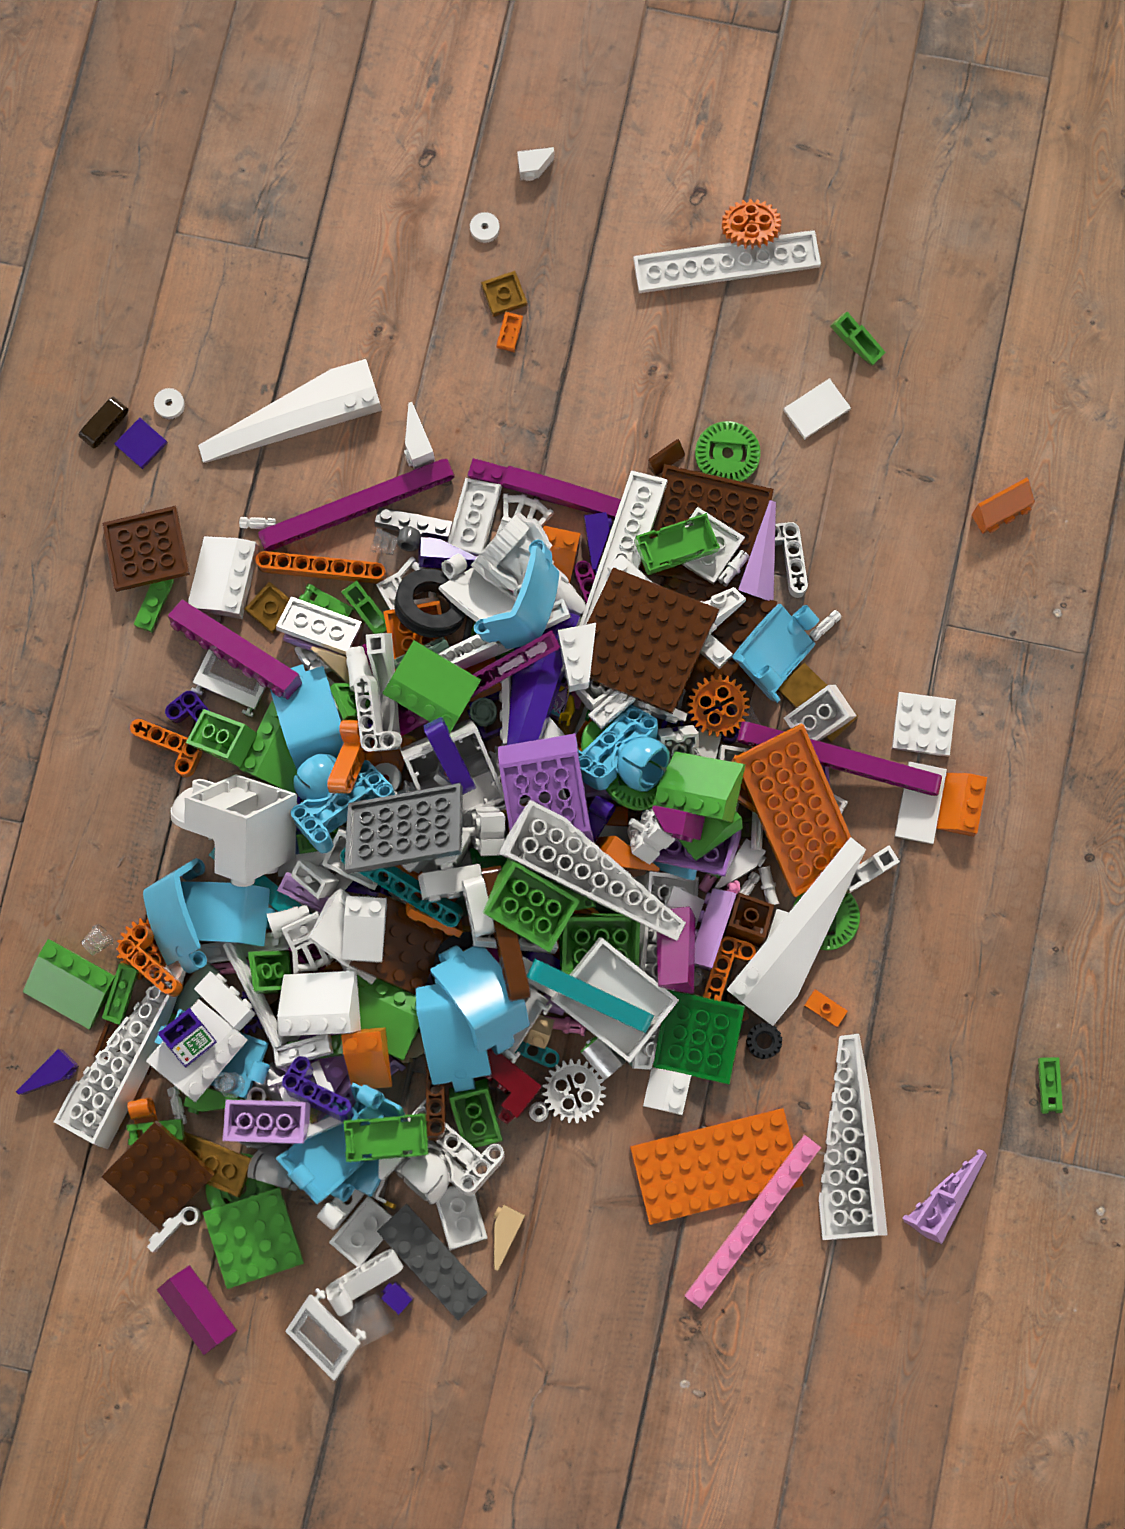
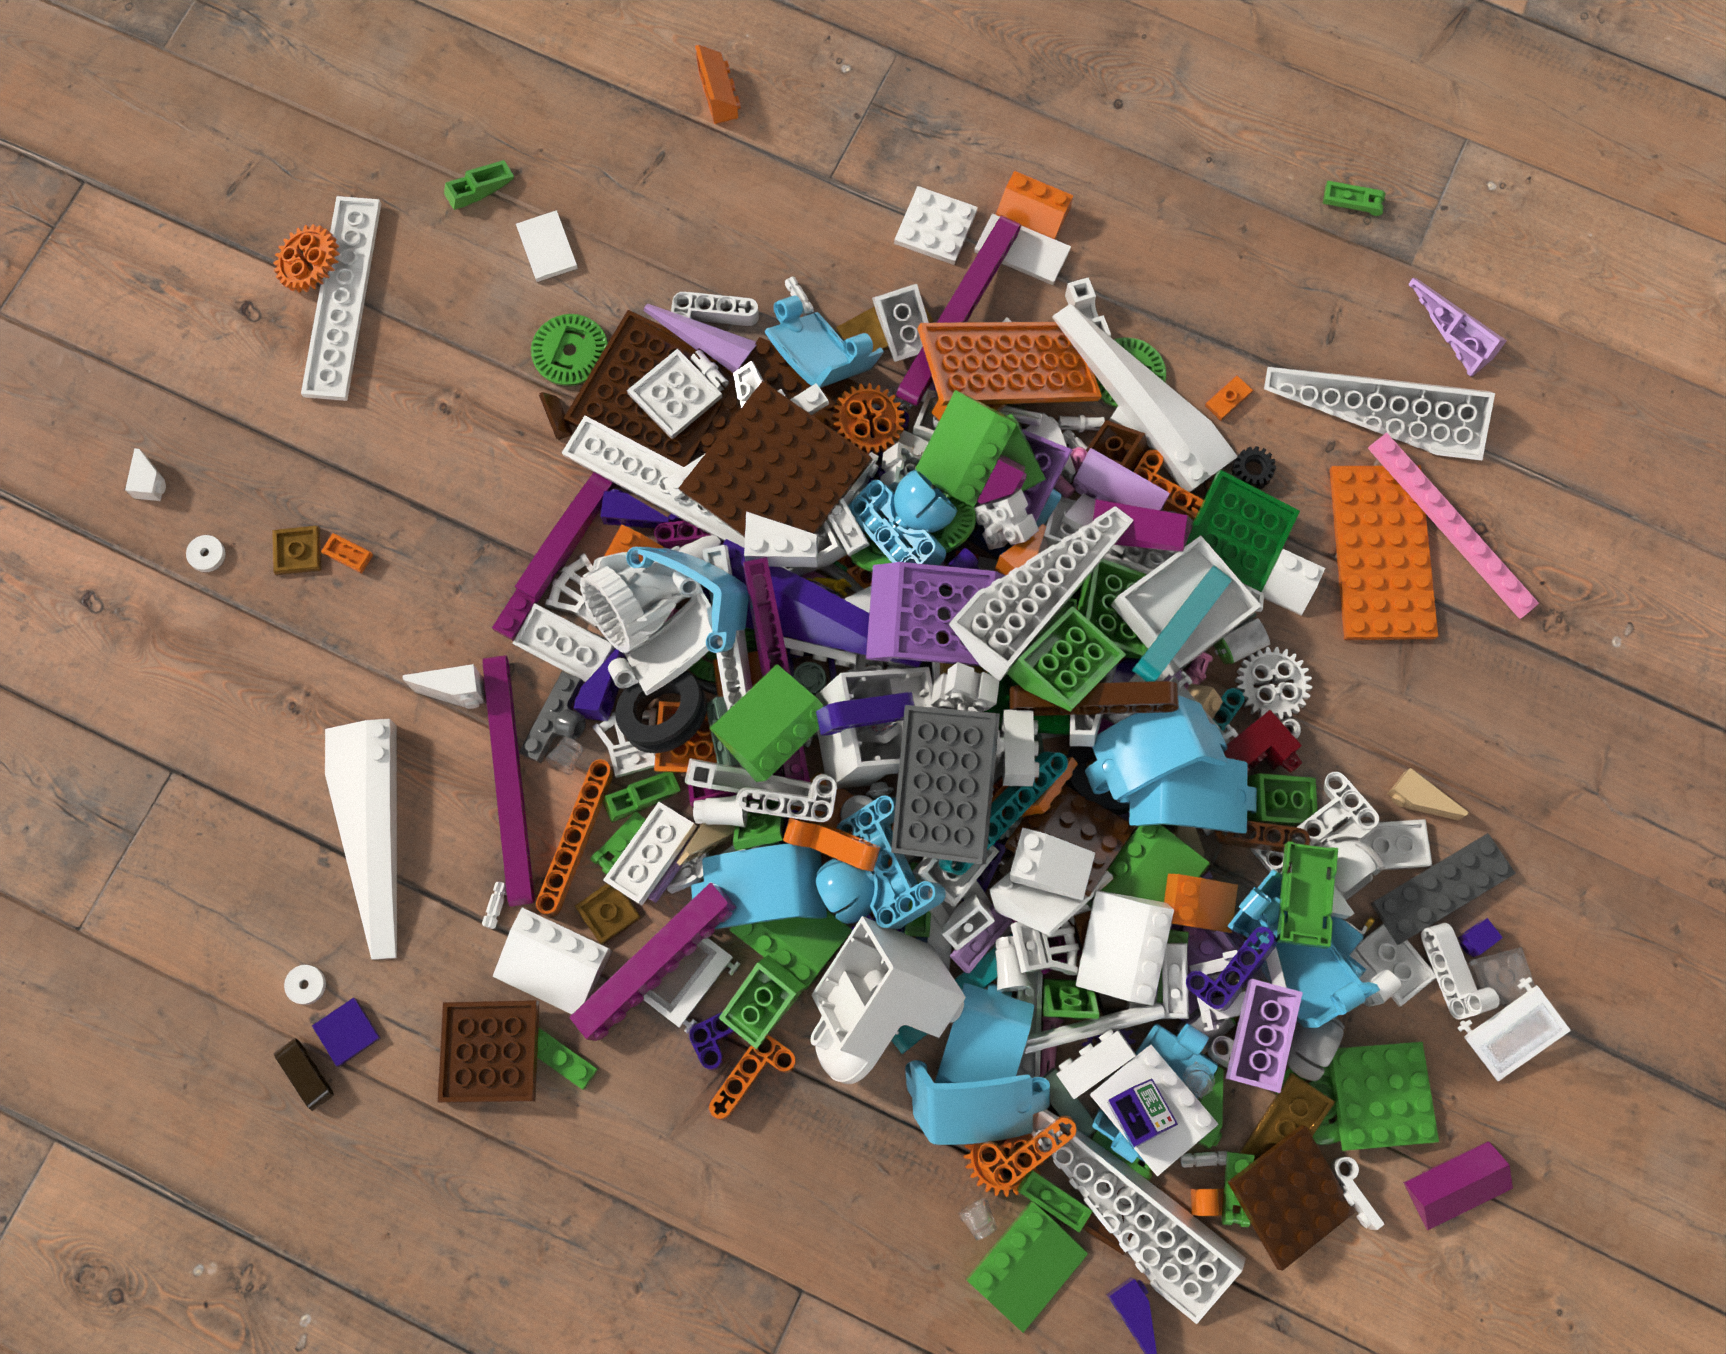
camera: 80 degrees left, 5 degrees down
(476, 900) = (1056, 721): white beam -> none
(676, 544) = (667, 417): bright green piece -> none

